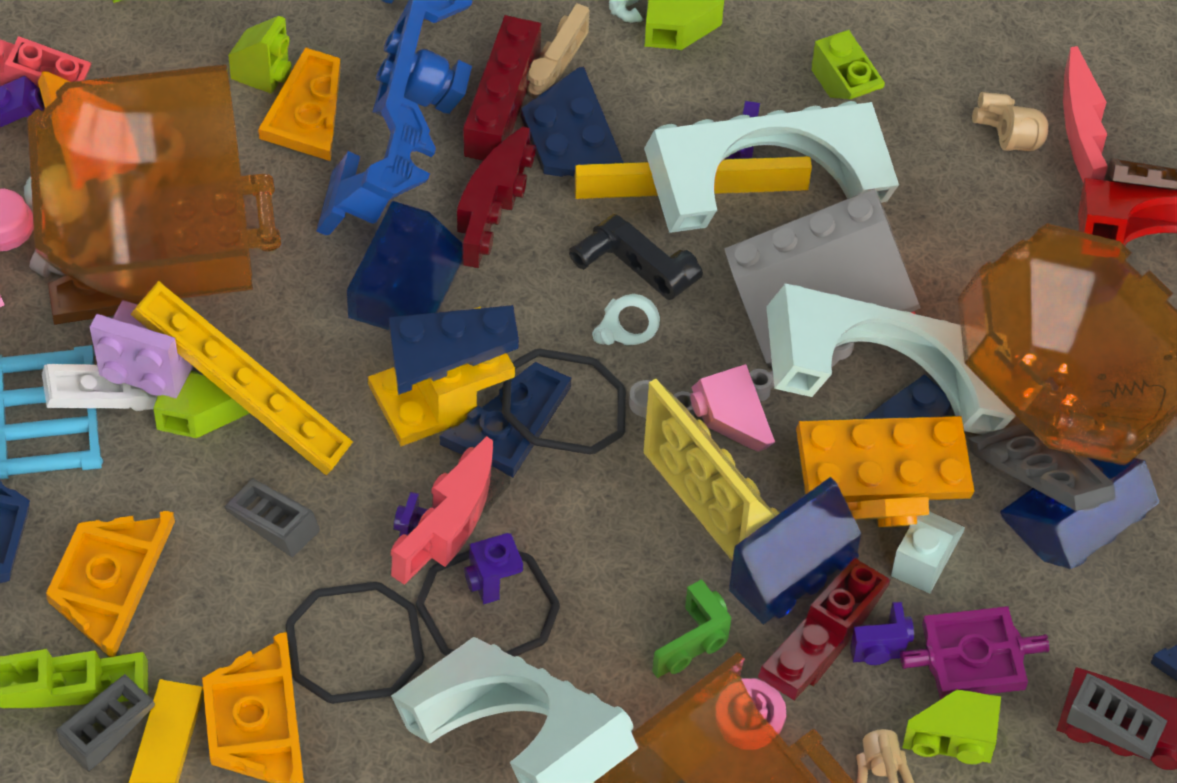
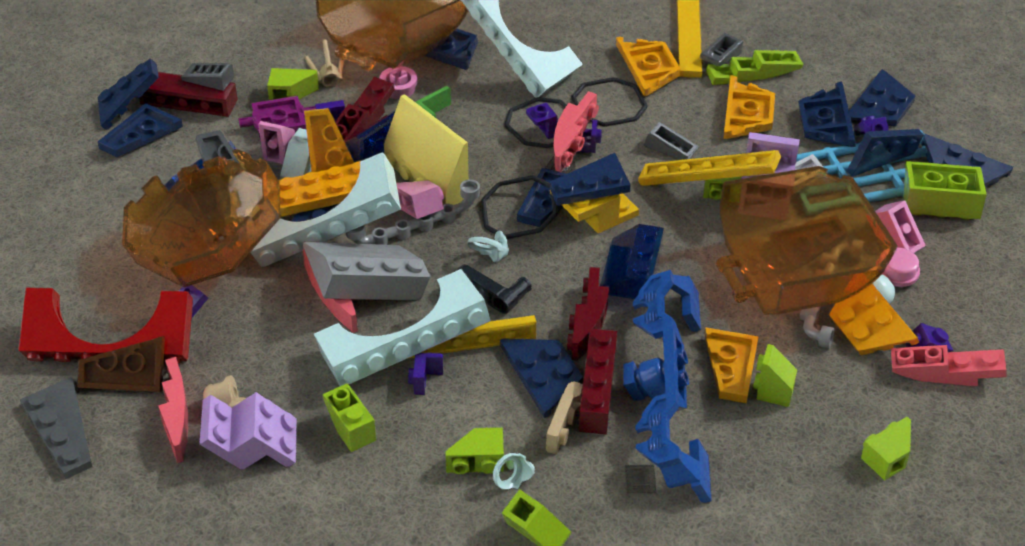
camera: 175 degrees right, 10 degrees down
(973, 565) = (274, 141): none -> bright pink slope
(980, 57) = (248, 431): none -> lavender bracket

